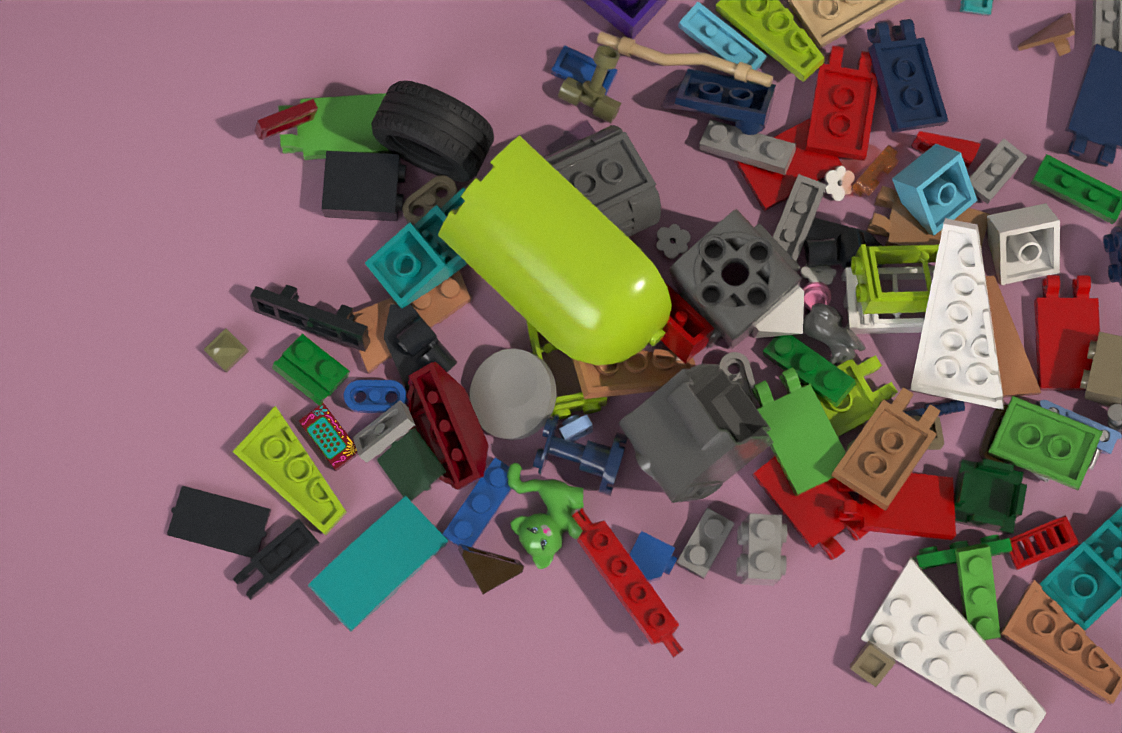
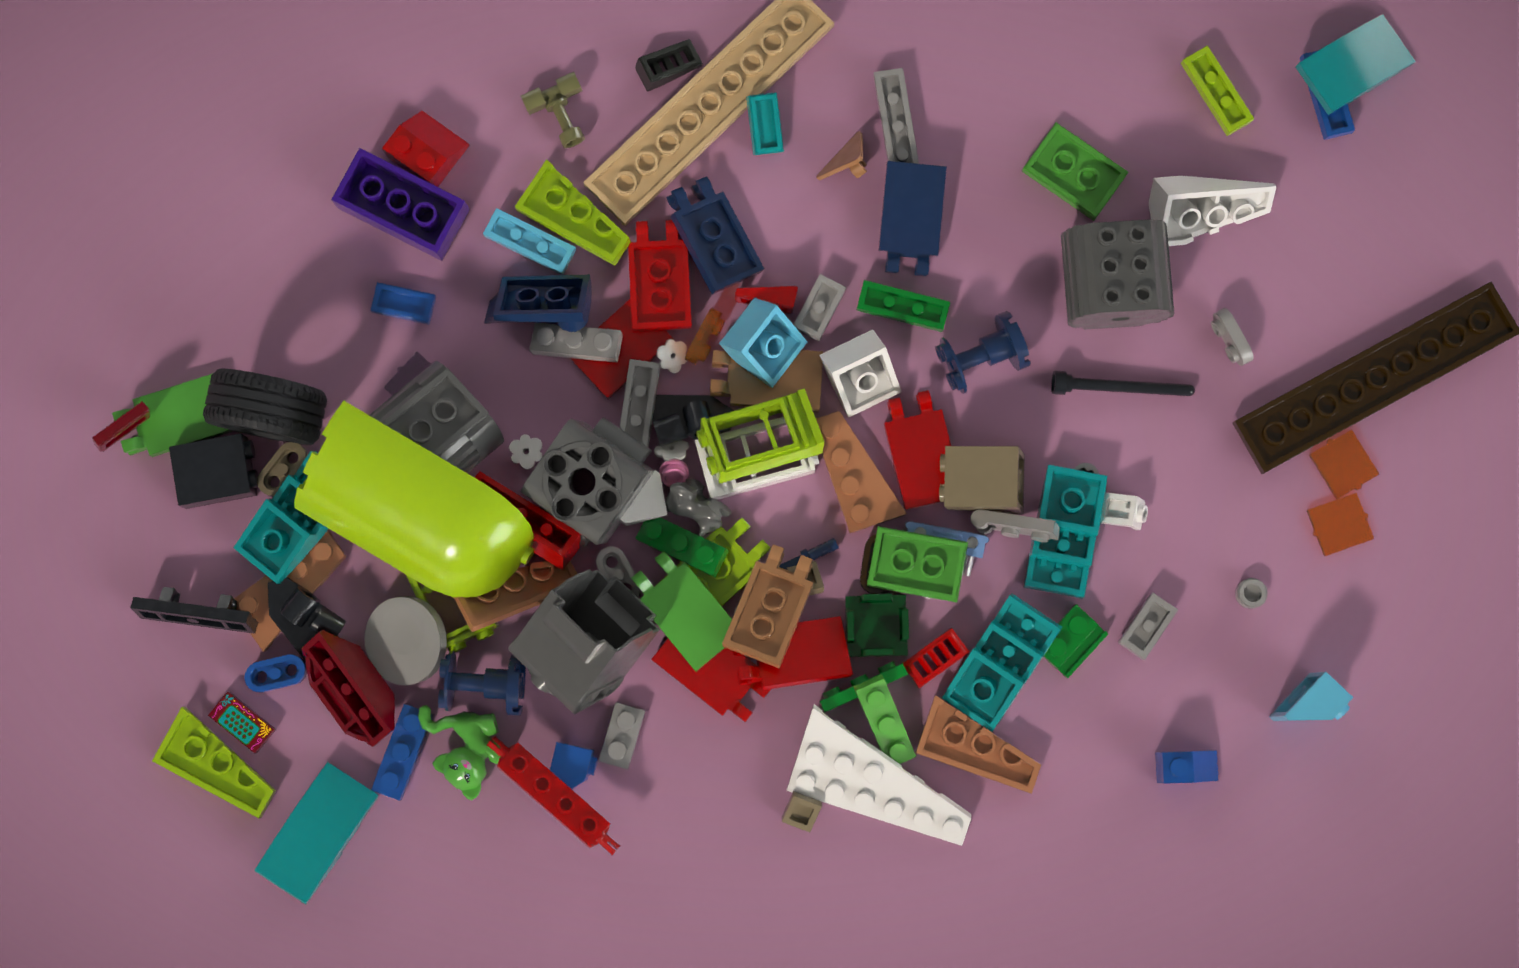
camera: 15 degrees left, 5 degrees up
(218, 522) = (156, 830): black piece -> none
(226, 350) = (122, 663): olive tile -> none
(278, 557) = (221, 849): black hinge -> none
(310, 369) = (207, 662): green plate -> none
(383, 431) = (291, 706): light grey plate -> none
(411, 465) = (326, 731): clear green piece -> none
(489, 568) = (421, 812): dark brown slope -> none
(576, 428) = (473, 657): light blue plate -> none
(592, 92) = (414, 323): olive bar -> none
(741, 71) = (552, 269): tan bar -> none
(761, 551) = (673, 734): light grey brick -> none
(957, 335) = (809, 481): white wing -> none

